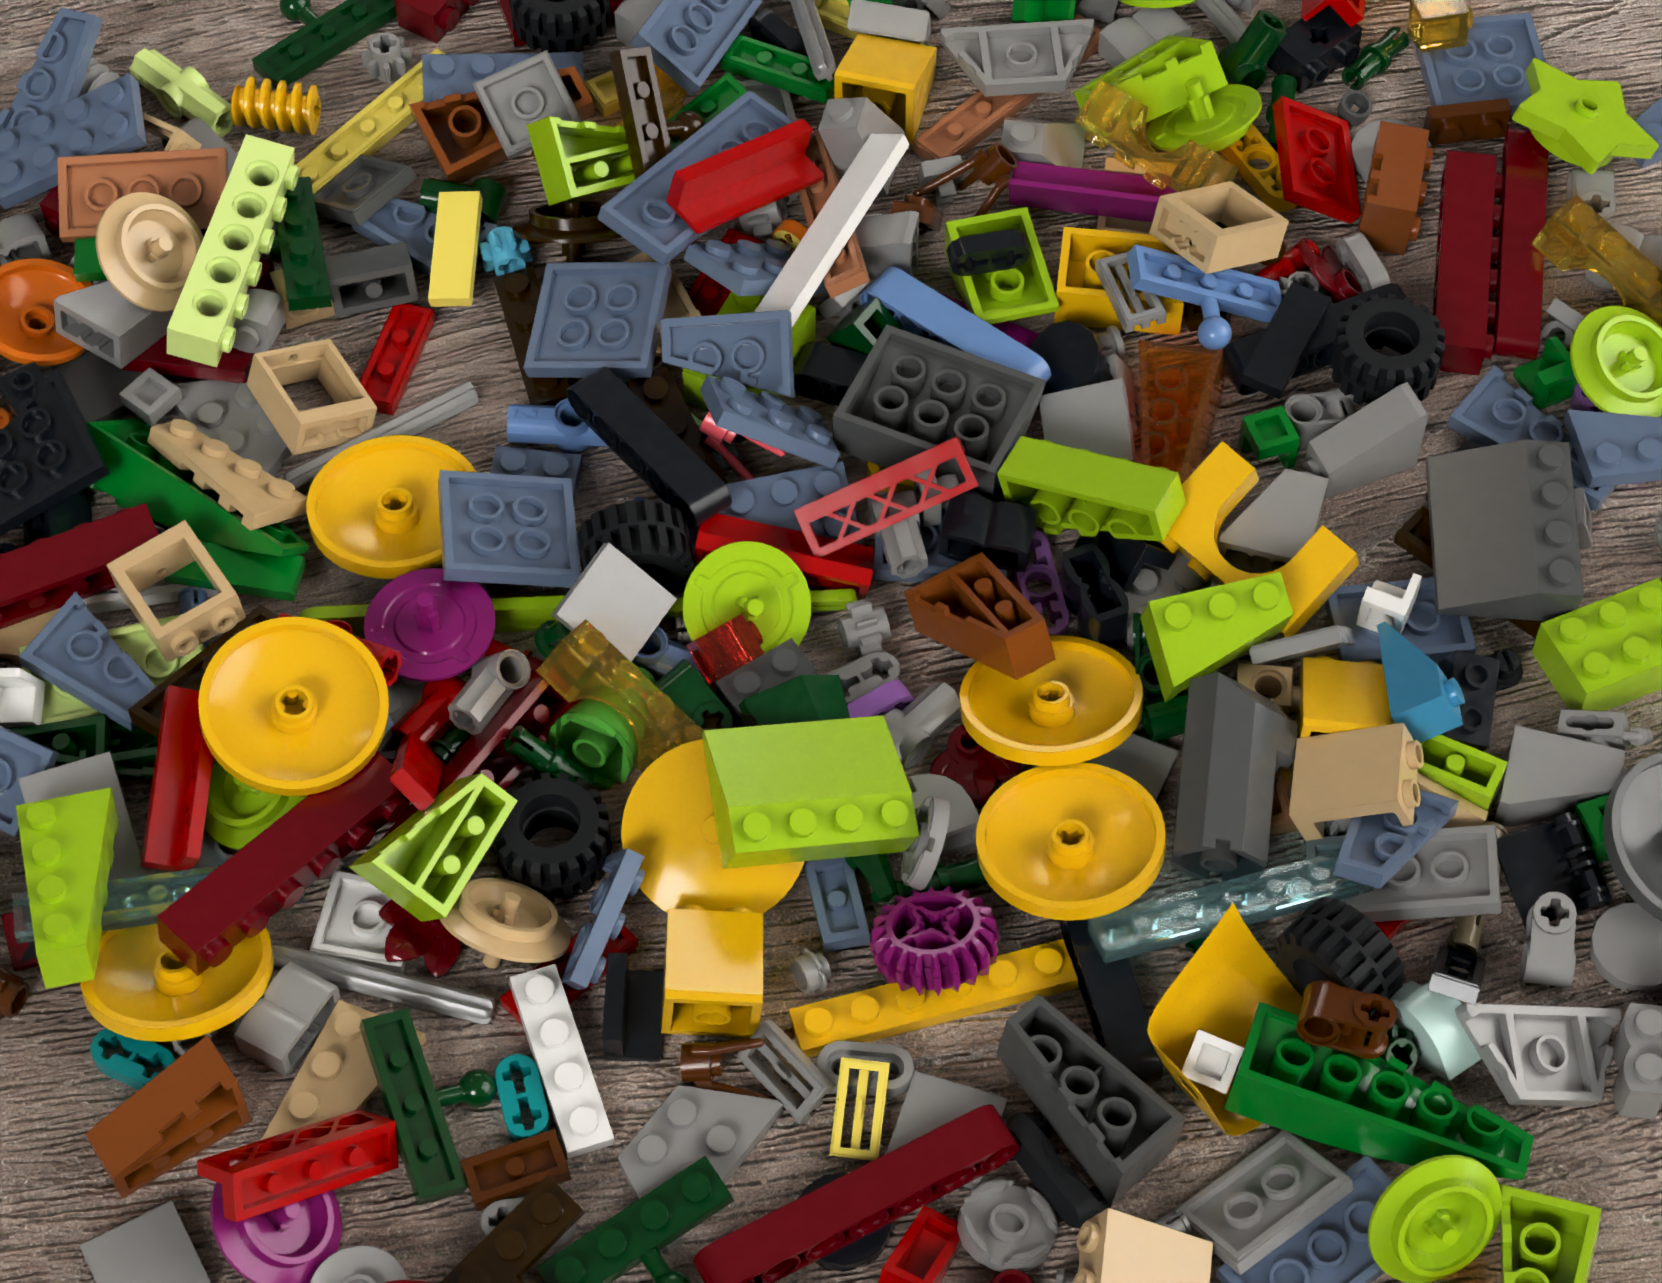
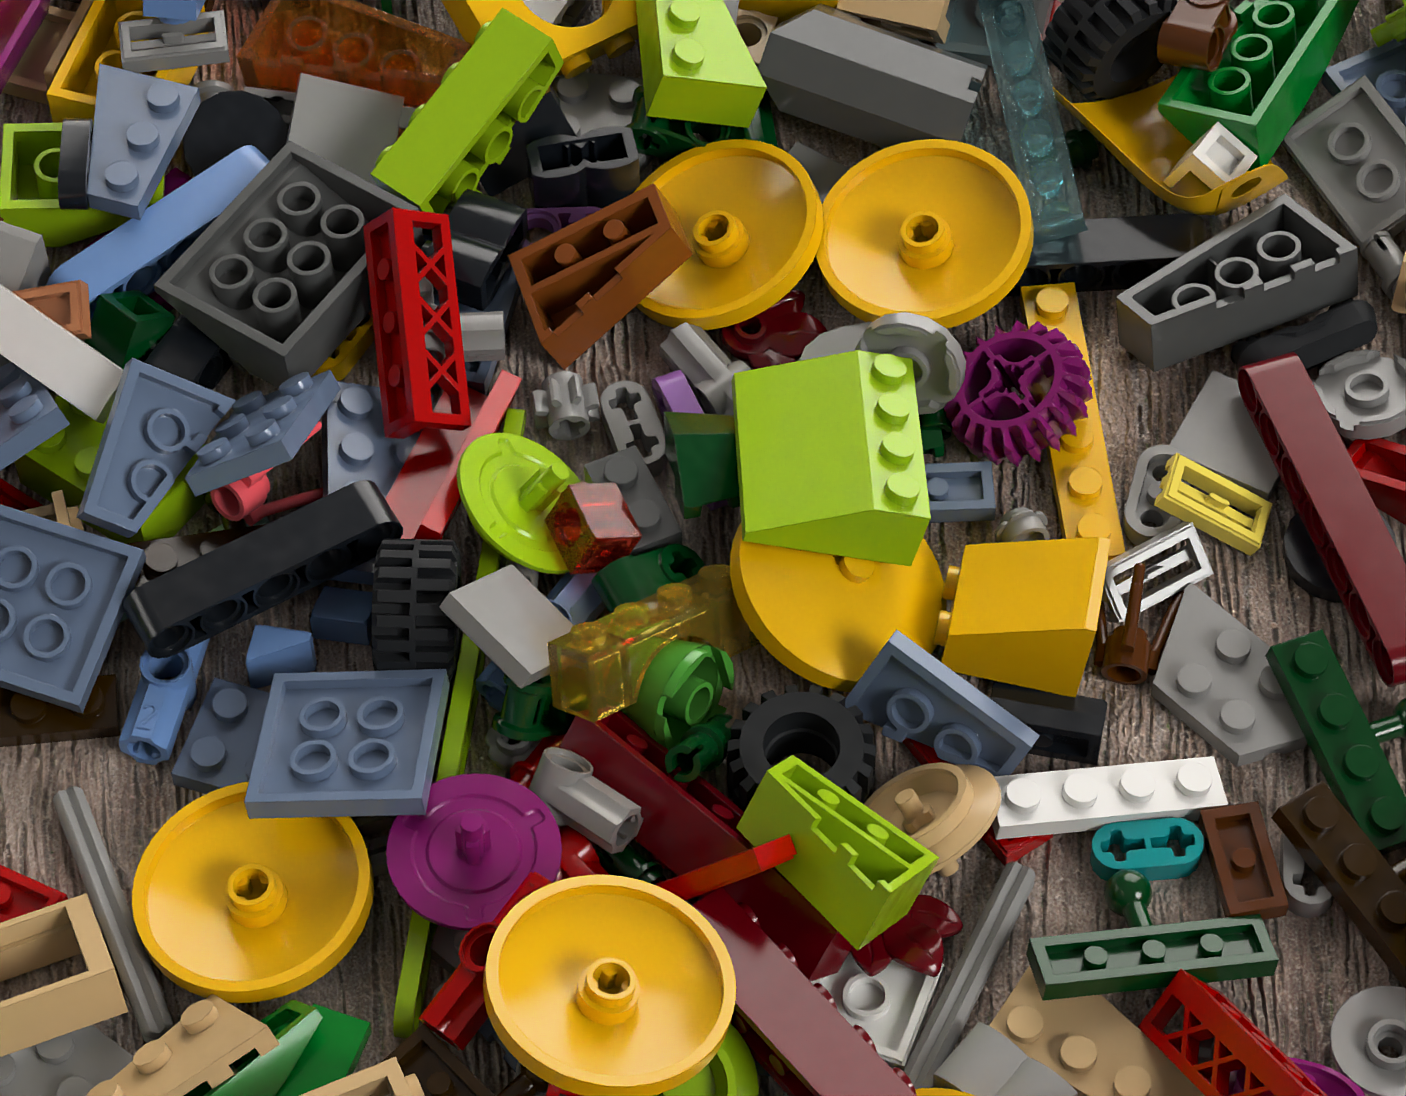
camera: 80 degrees left, 0 degrees up
(601, 481) = (278, 651): none -> medium blue slope
(1026, 285) = (135, 137): none -> sand blue wing

